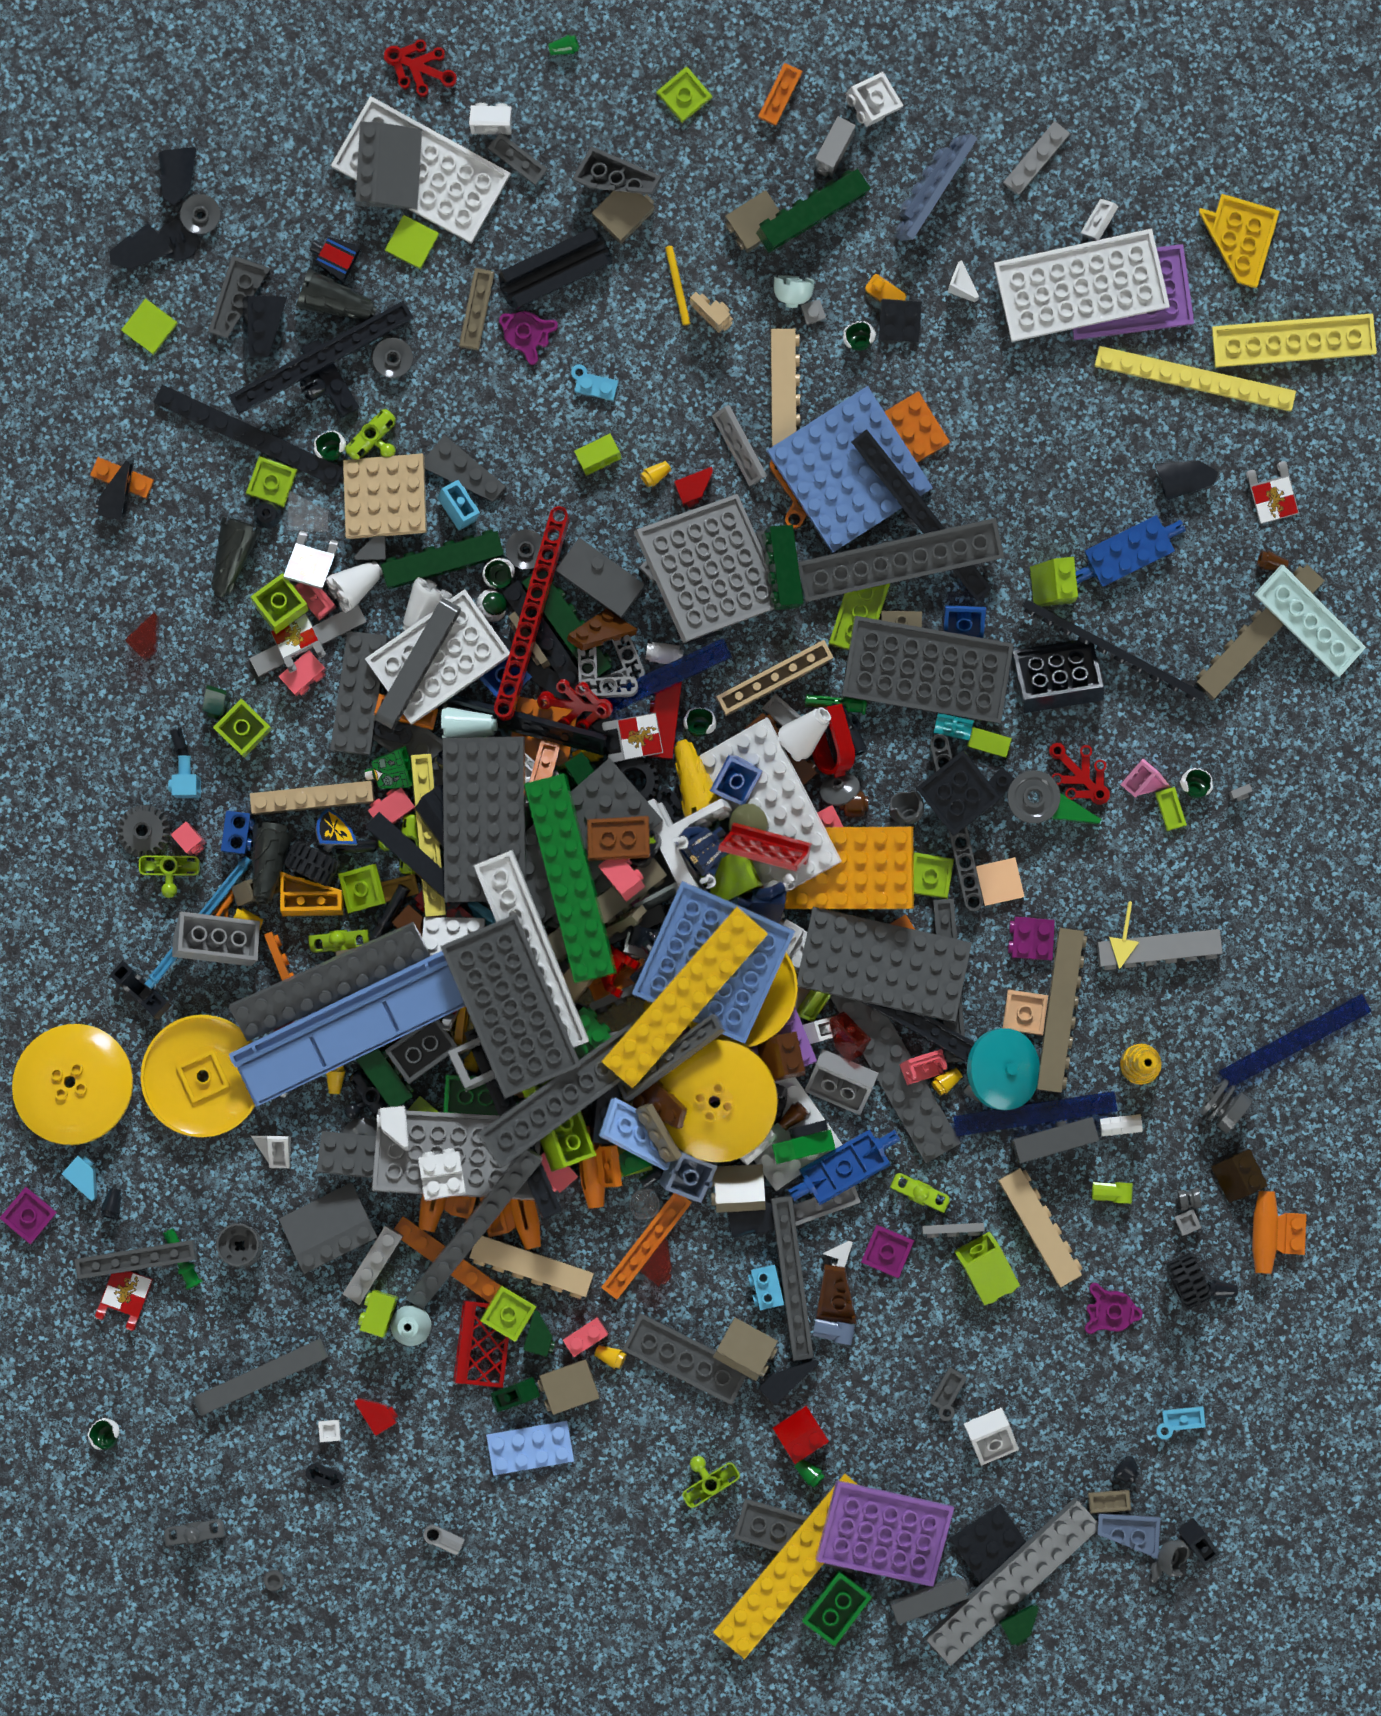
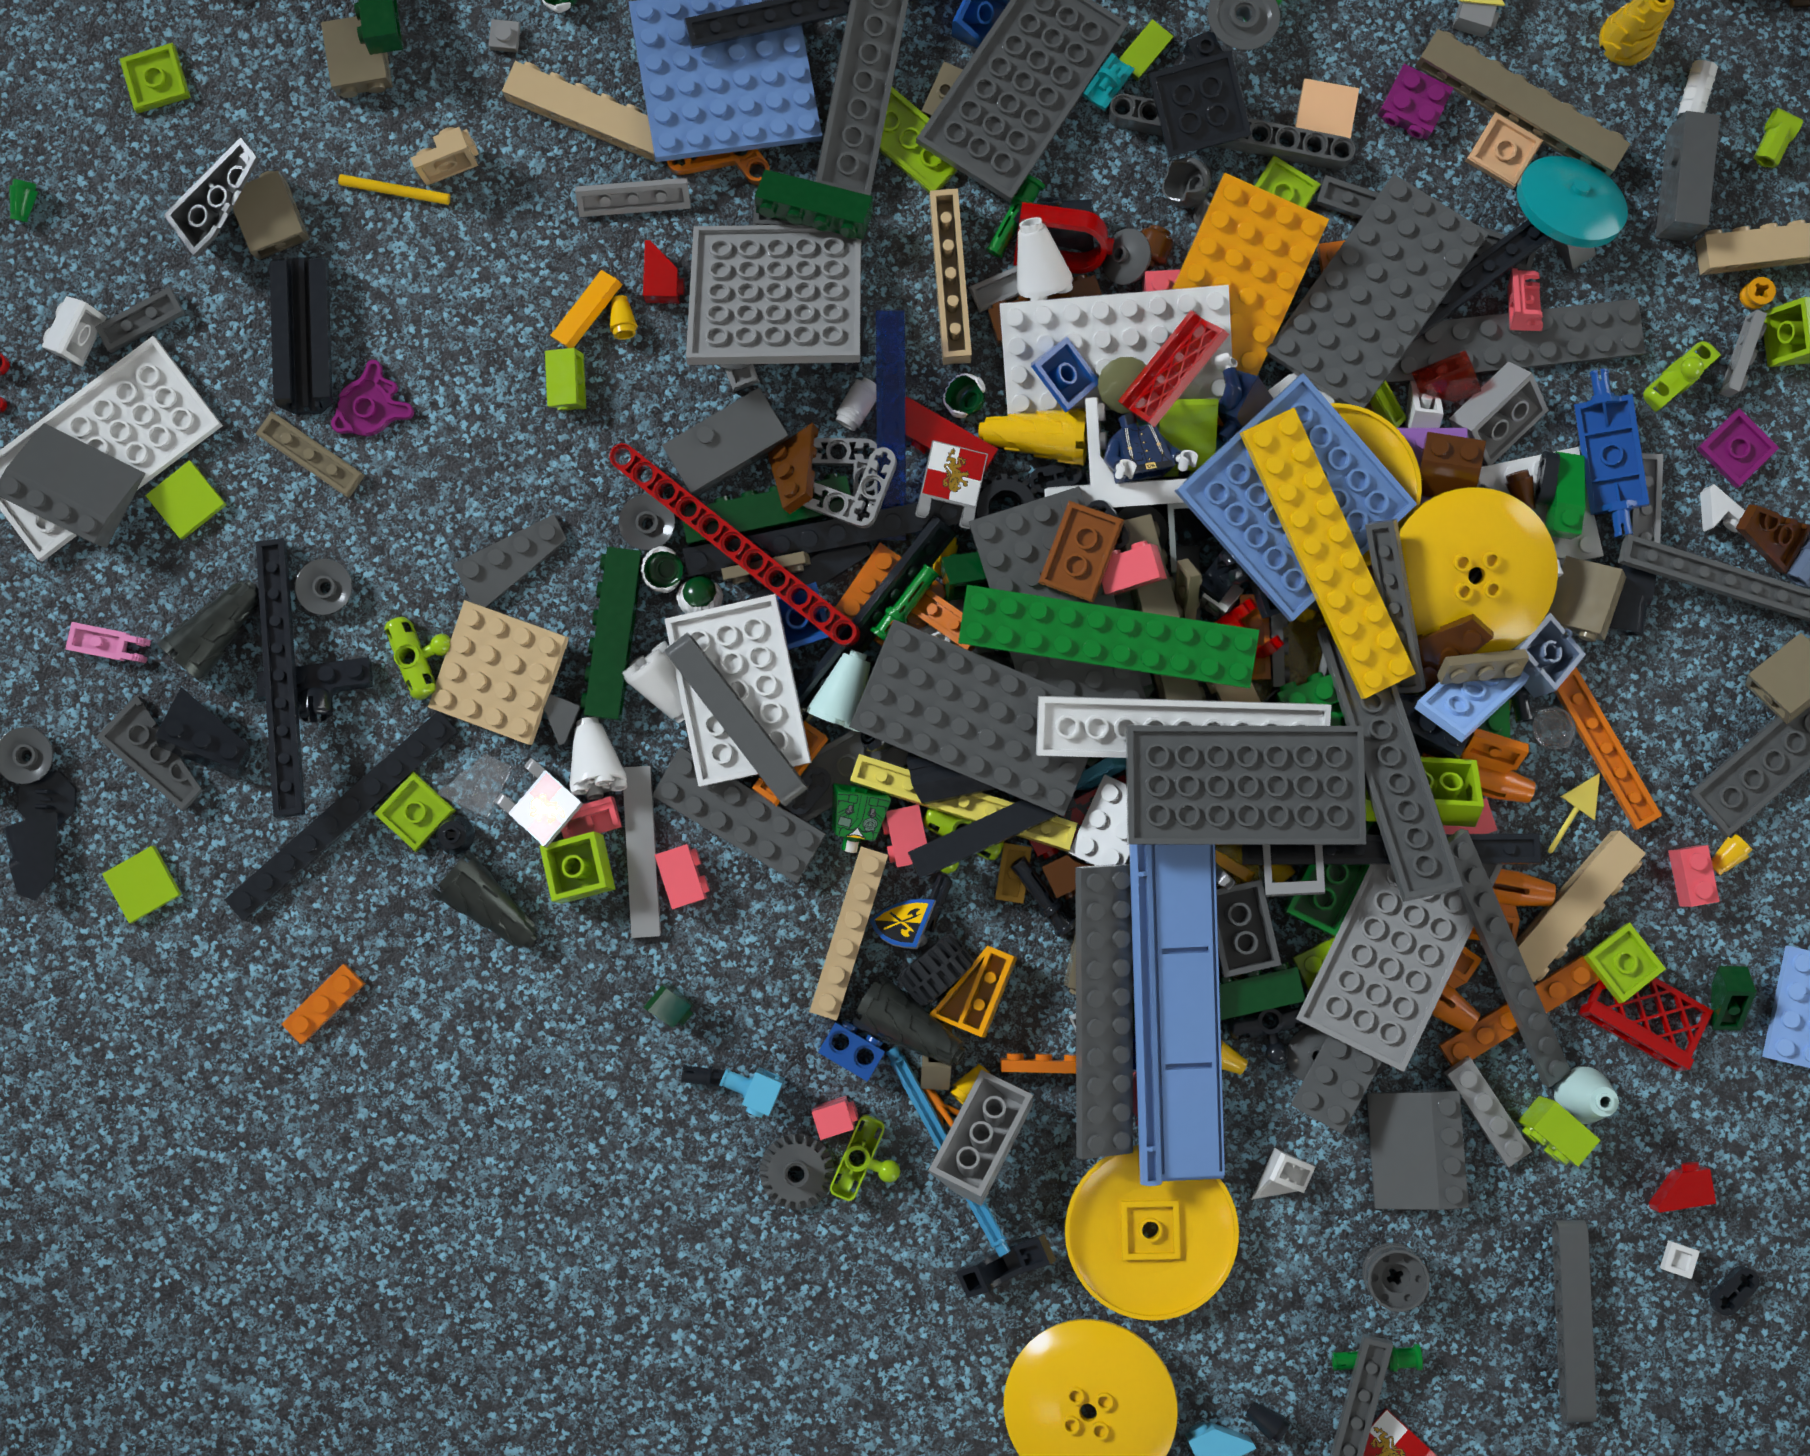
camera: 70 degrees left, 0 degrees up
(115, 497) = (342, 1023): black slope -> none
(145, 637) = (545, 1061): clear red slope -> none
(242, 728) = (719, 985): lime brick -> none
(295, 231) = (104, 642): none -> bright pink hinge
(297, 639) = (634, 865): flag -> none
(329, 445) = (401, 716): dark green hair -> none
(336, 257) = (160, 604): torso -> none
(337, 940) = (1048, 977): lime piece -> none
(361, 888) = (994, 918): lime plate -> none
(394, 1125) = (1331, 1006): white slope -> none
(441, 1174) = (1423, 971): white plate -> none
(458, 505) = (551, 582): medium azure brick -> none
(539, 1336) = (1669, 936): dark green slope -> none
(565, 747) = (927, 576): none -> green pin
(568, 1387) = (1748, 925): dark tan brick -> none
(576, 703) = (877, 537): red plant -> none
(594, 385) = (474, 347): medium azure hinge -> none
(607, 1246) = (1583, 799): none -> light yellow piece
(650, 447) = (586, 309): none -> light orange tile
(659, 1265) = (1640, 742): clear red slope -> none
(767, 1287) = (1722, 618): medium azure brick -> none
(793, 290) = (465, 45): light aqua cylinder -> none
(946, 1081) = (1552, 283): yellow cone -> none
(996, 1220) = (1751, 297): none -> light orange wheel
(1035, 1113) = (1639, 189): clear blue plate -> none

